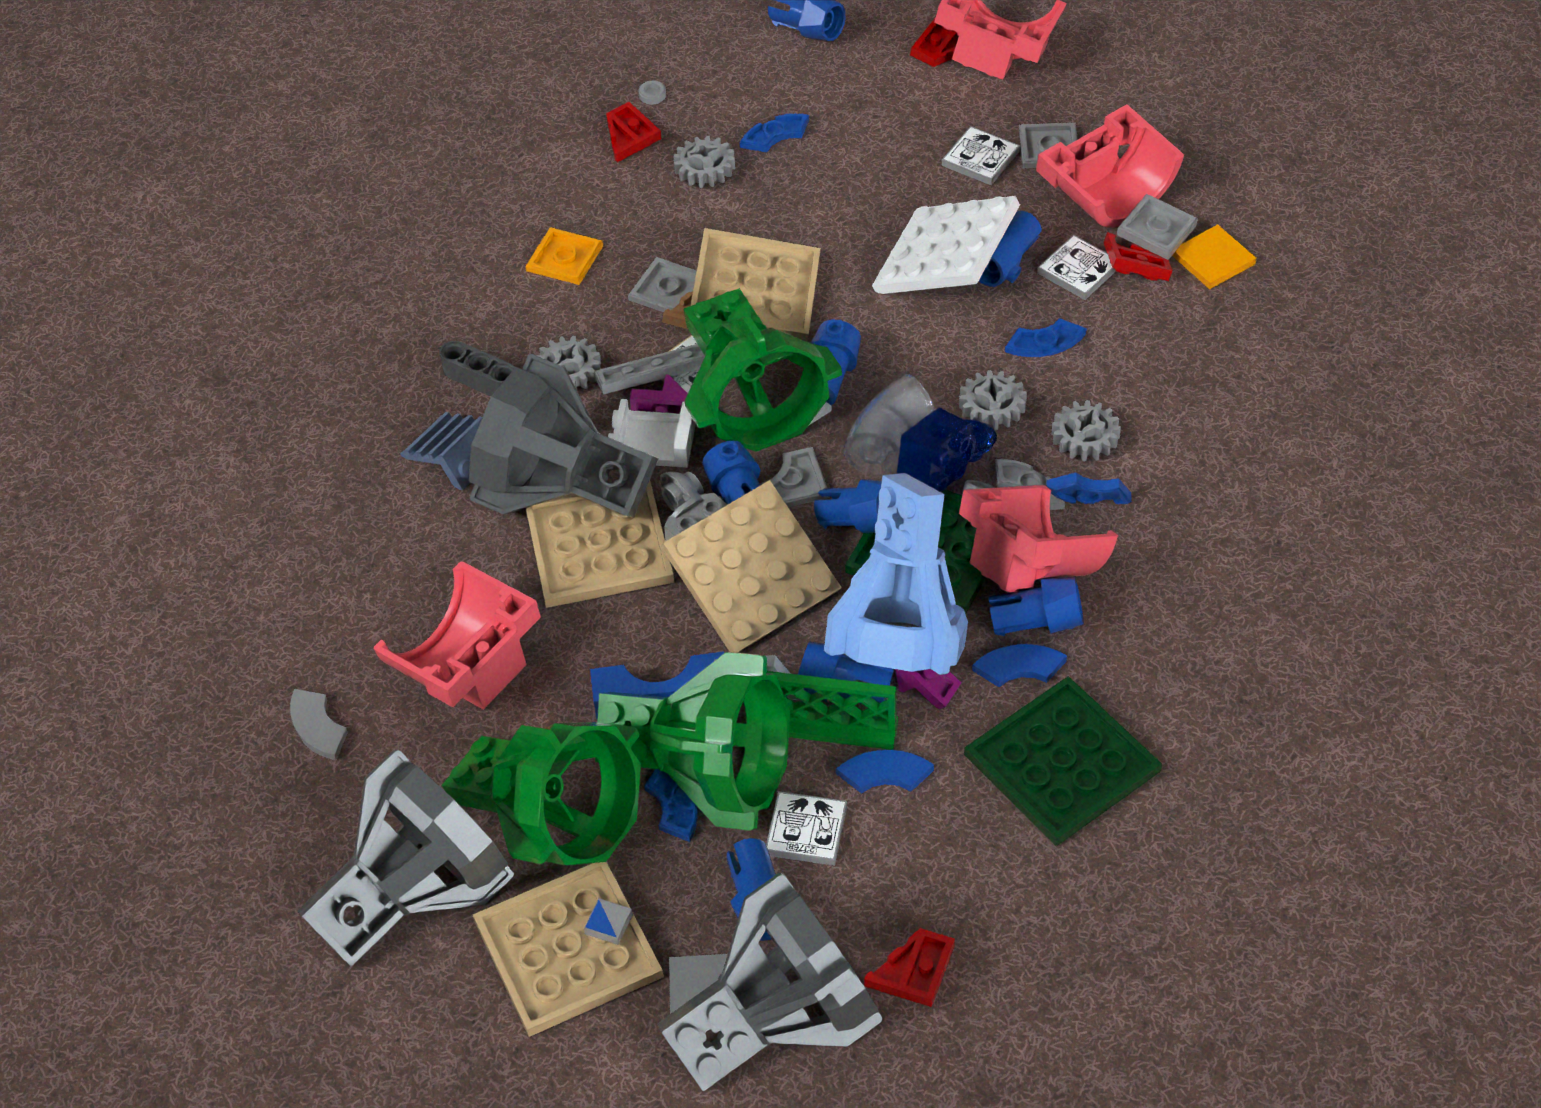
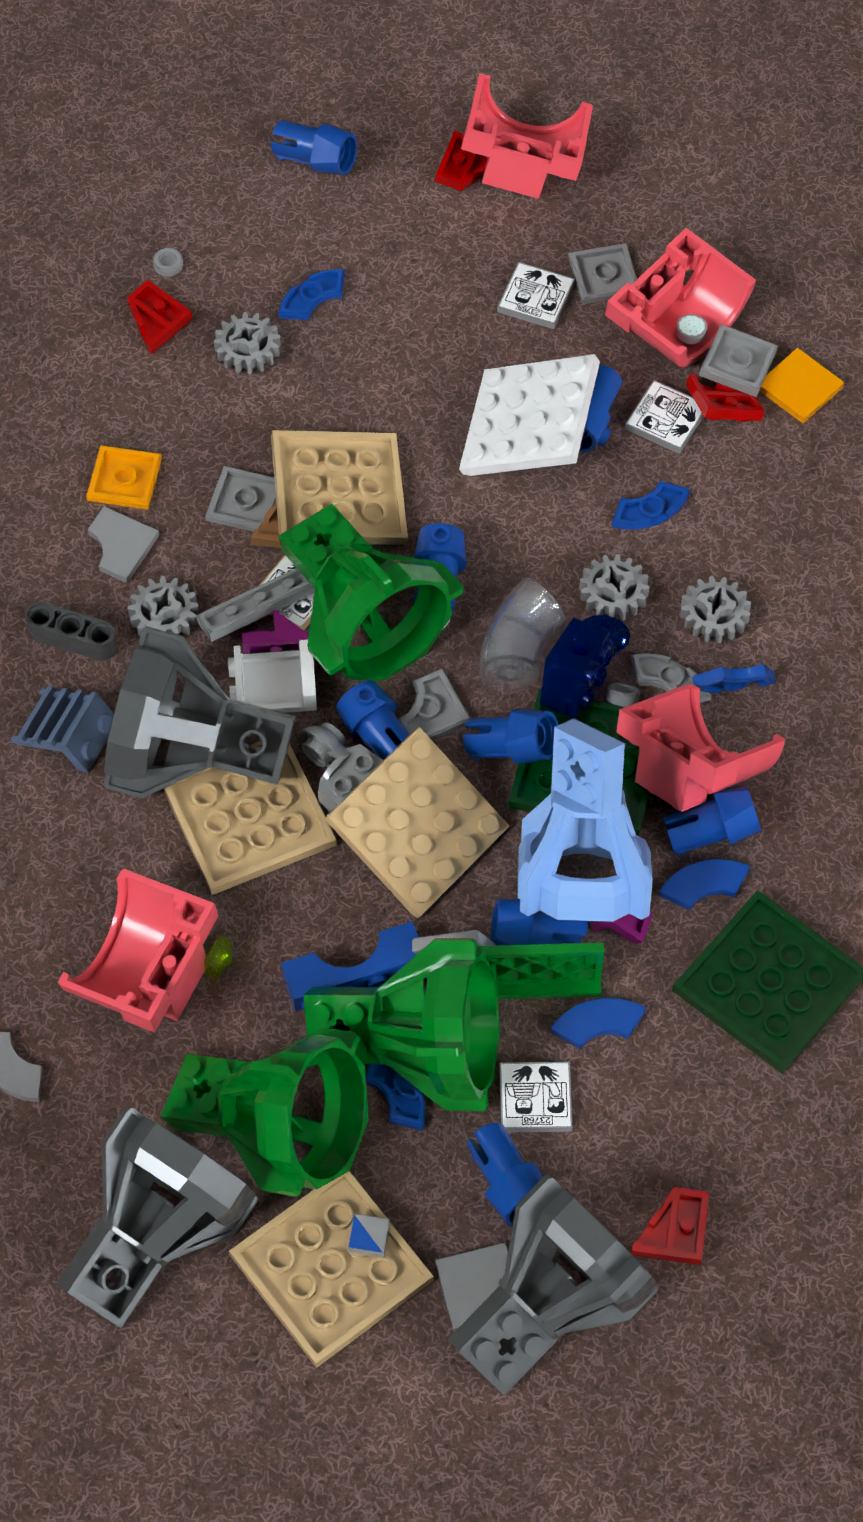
camera: 15 degrees left, 10 degrees up
(535, 659) = (218, 957): none -> clear neon green tile
(547, 307) = (123, 543): none -> light grey tile
(1118, 196) = (691, 329): none -> tile

